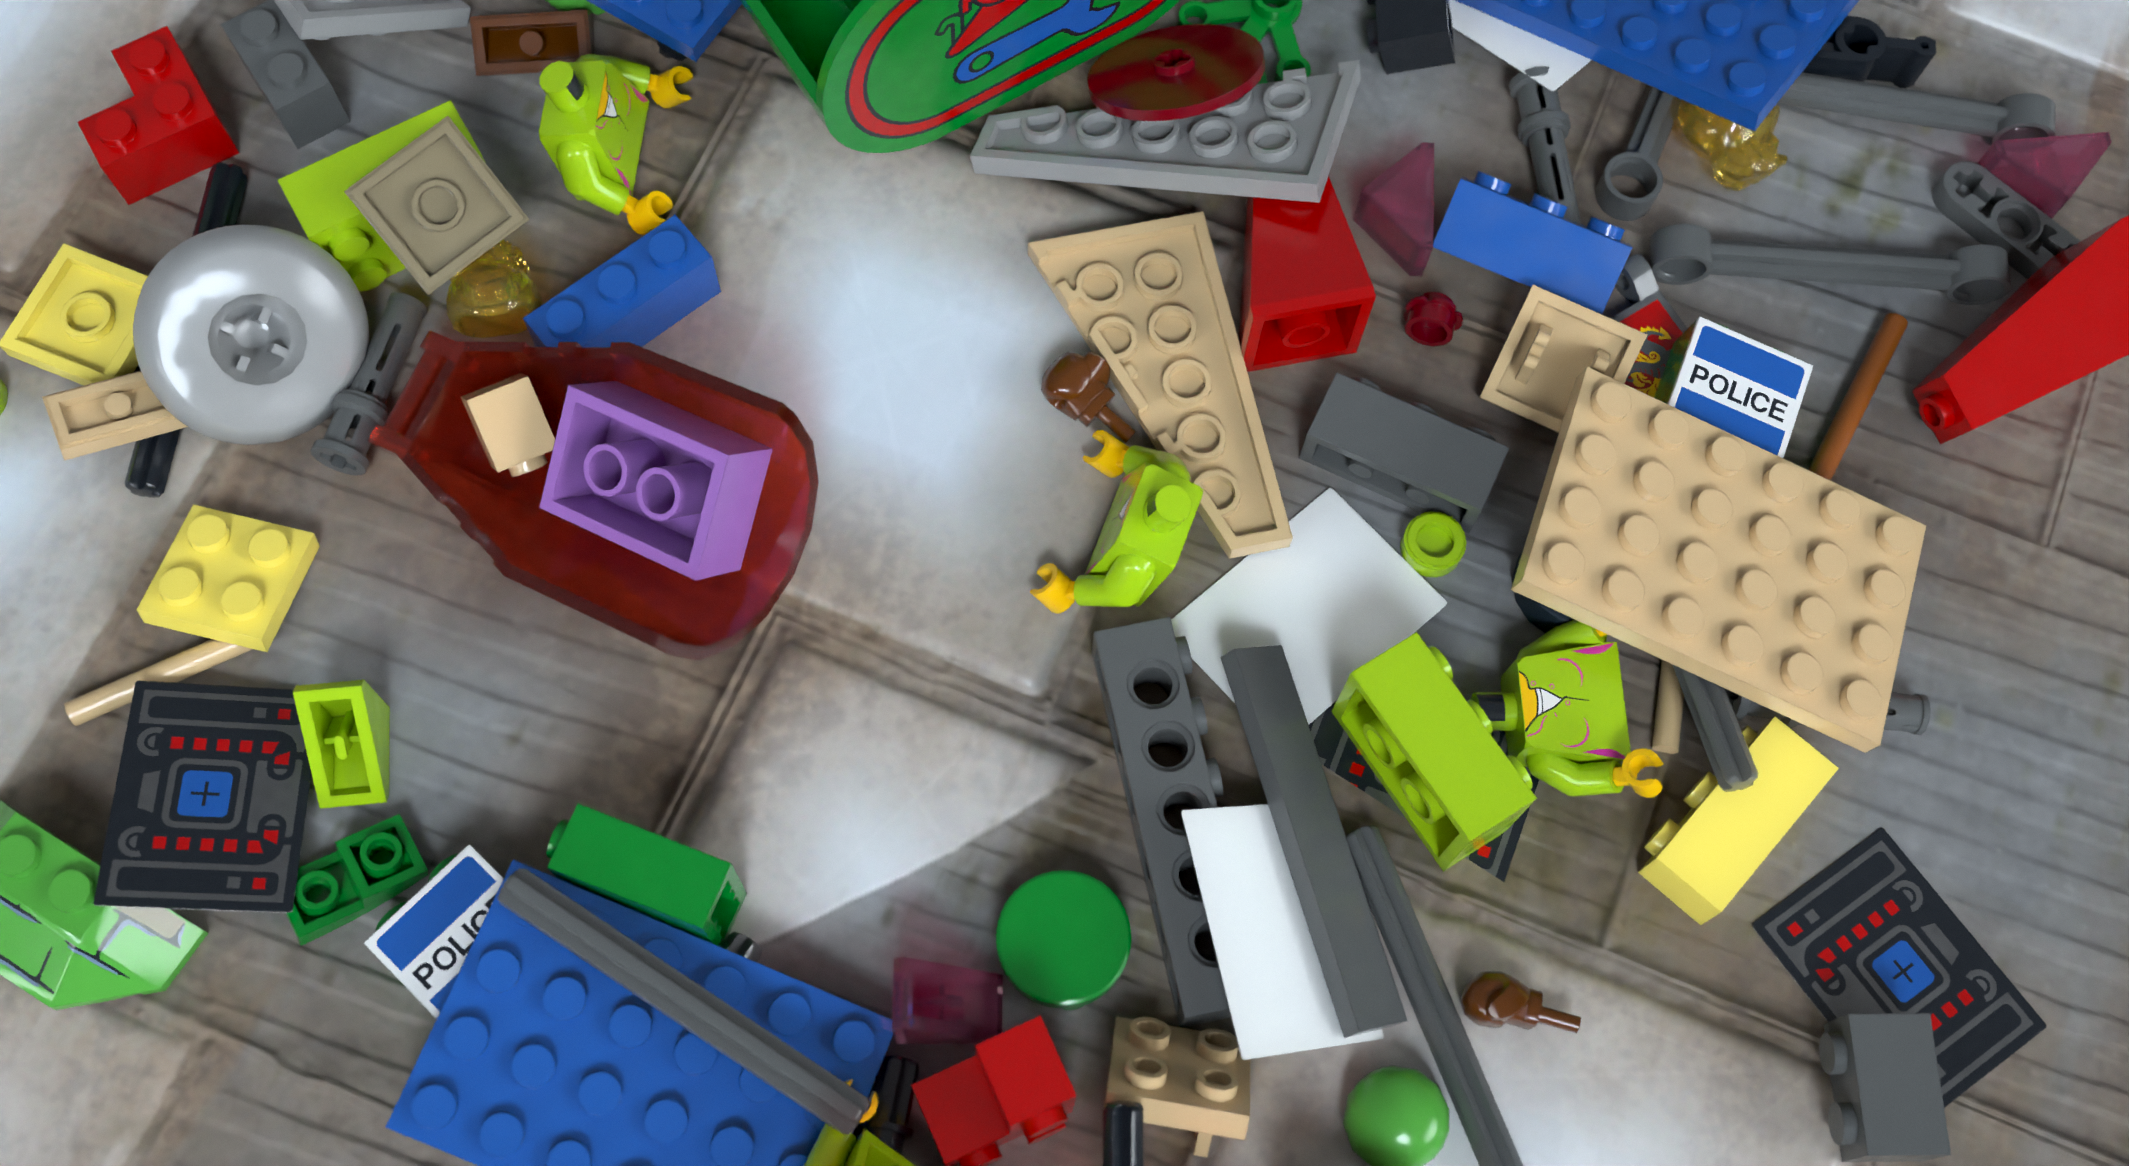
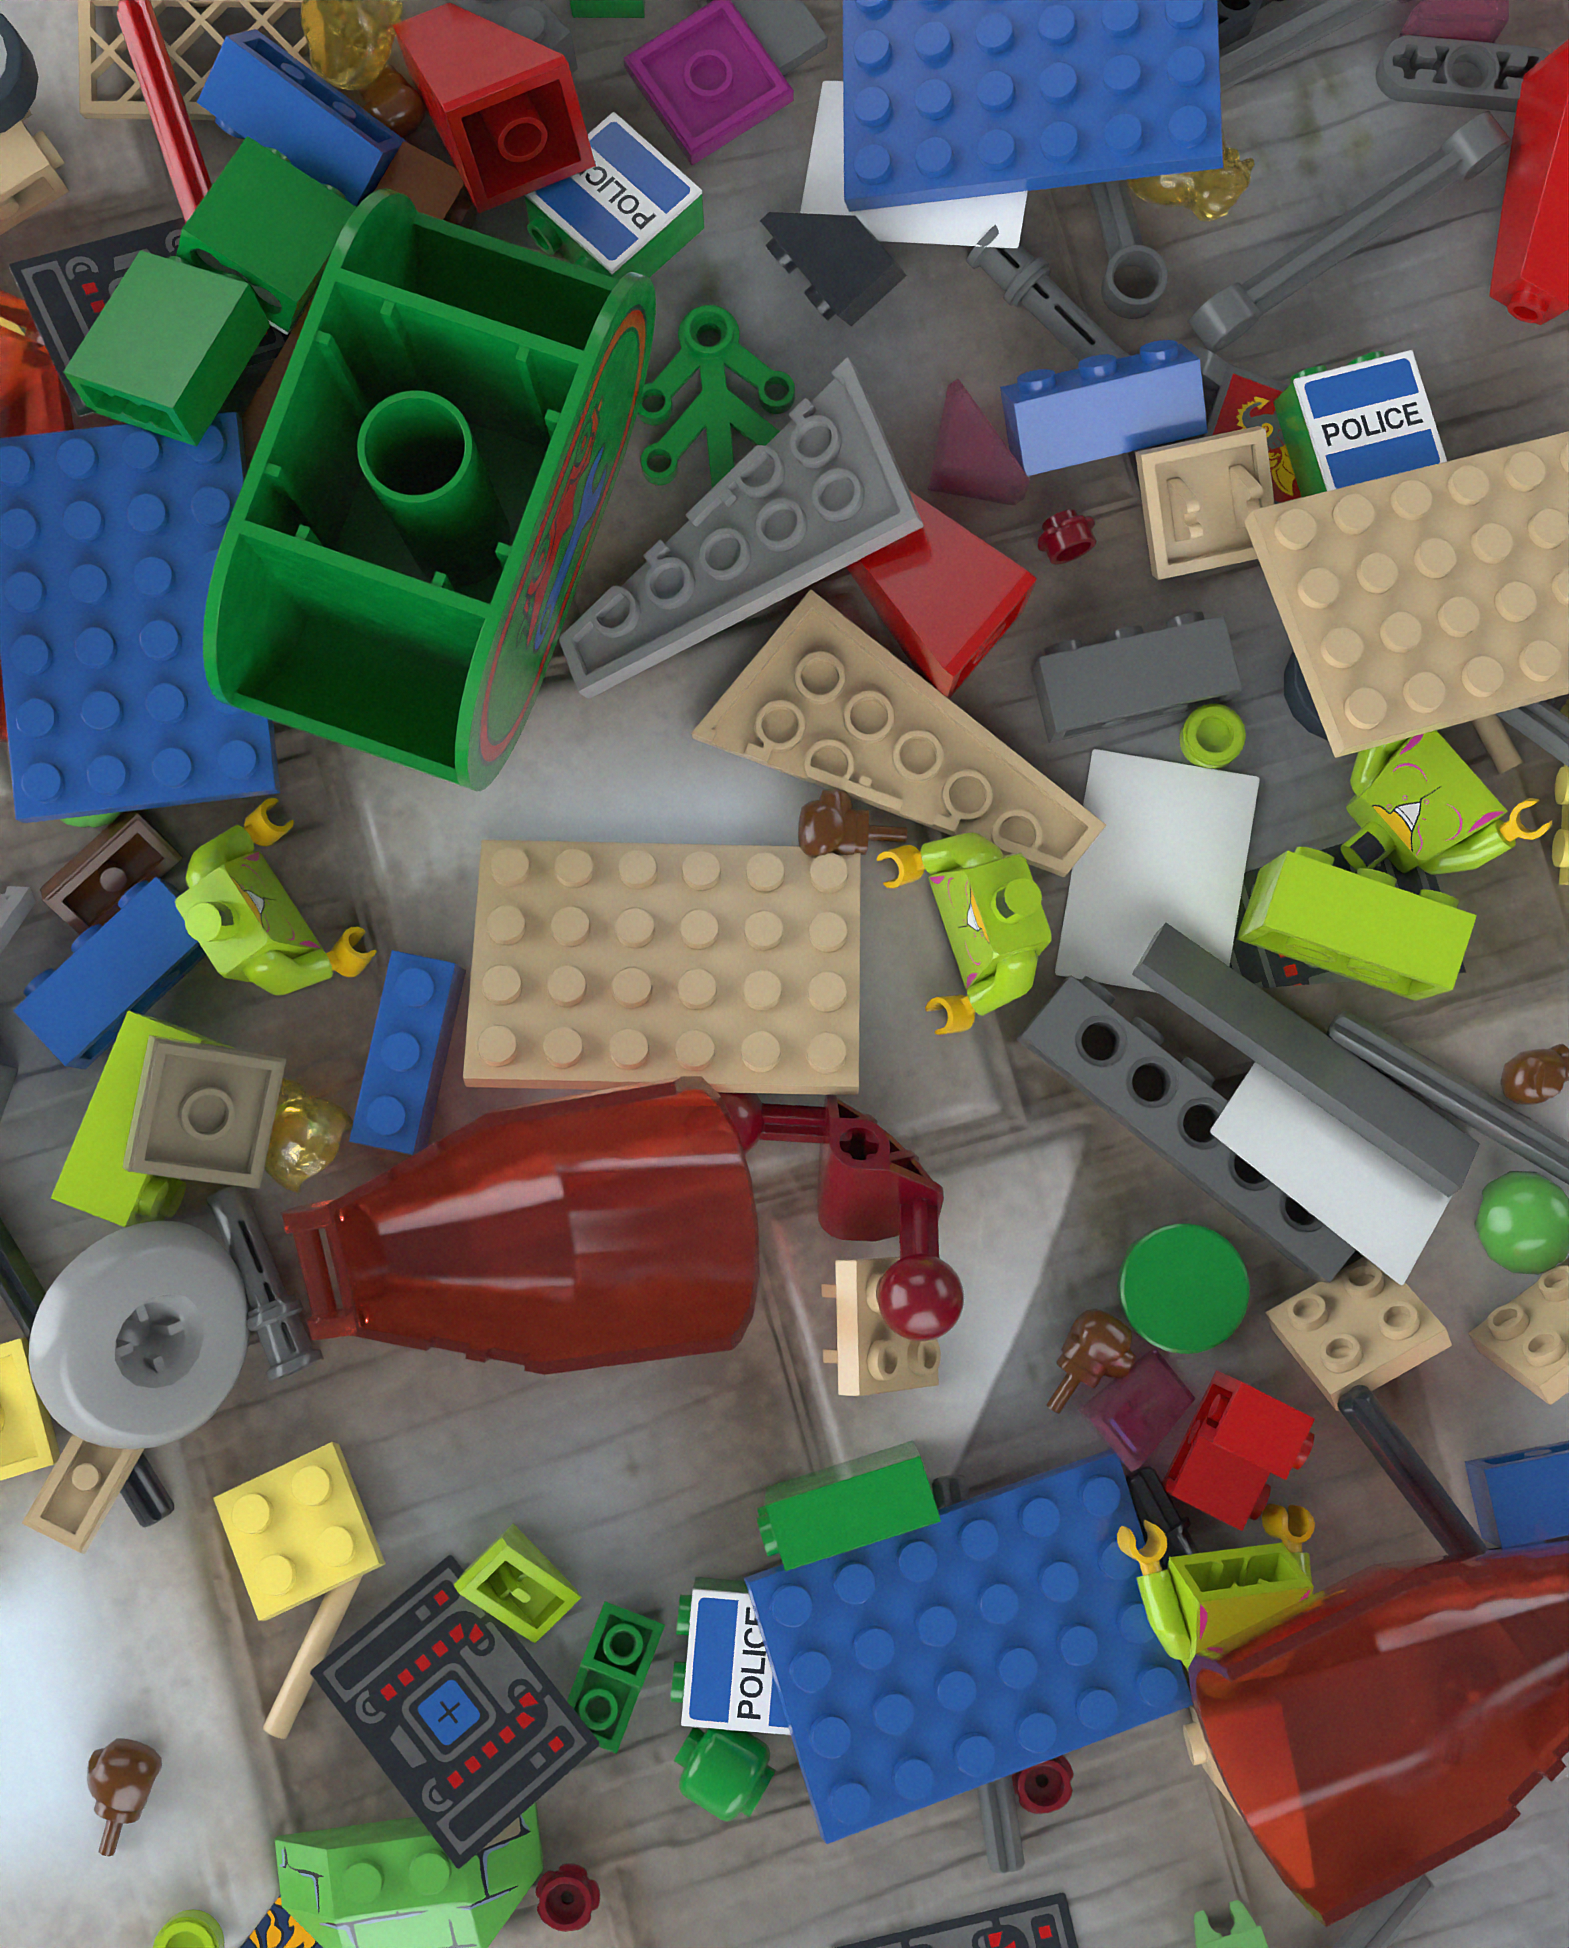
camera: 35 degrees left, 15 degrees up
(139, 1021) = (564, 1915): none -> dark red plate
(366, 1018) = (724, 1771): none -> green head
(492, 94) = (111, 972): none -> blue brick
(510, 425) = (420, 1238): tan brick -> none
(655, 479) = (588, 1197): medium lavender brick -> none
(683, 1001) = (968, 1584): dark grey axle -> none
(800, 767) = (868, 1351): none -> tan plate
(874, 660) = (869, 1193): none -> dark red piece
(904, 402) = (664, 967): none -> tan plate
(948, 931) = (1093, 1349): none -> reddish brown piece
(1176, 72) = (738, 473): dark red piece -> none
(1858, 396) = (1452, 345): dark orange bar -> none

